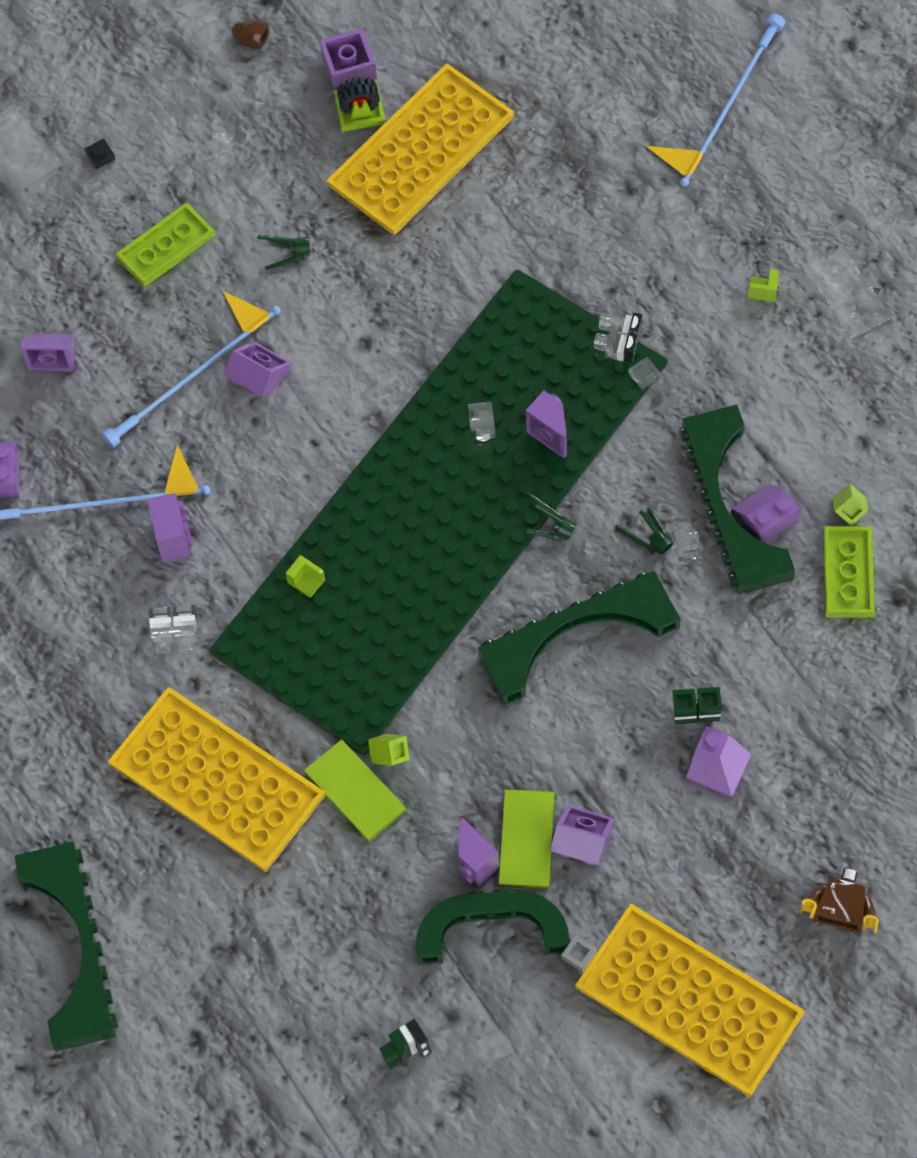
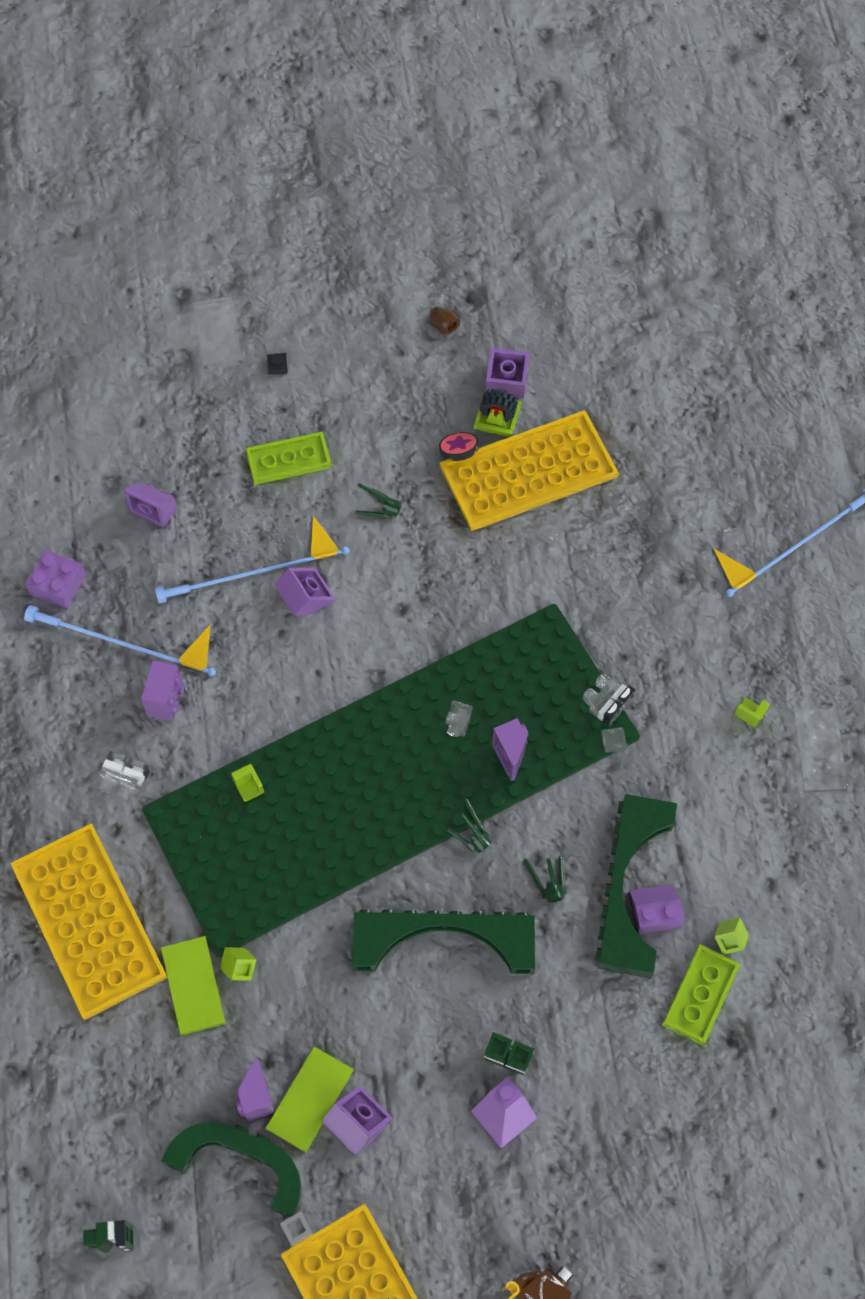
camera: 20 degrees right, 0 degrees up
(337, 155) = (458, 446): none -> tile

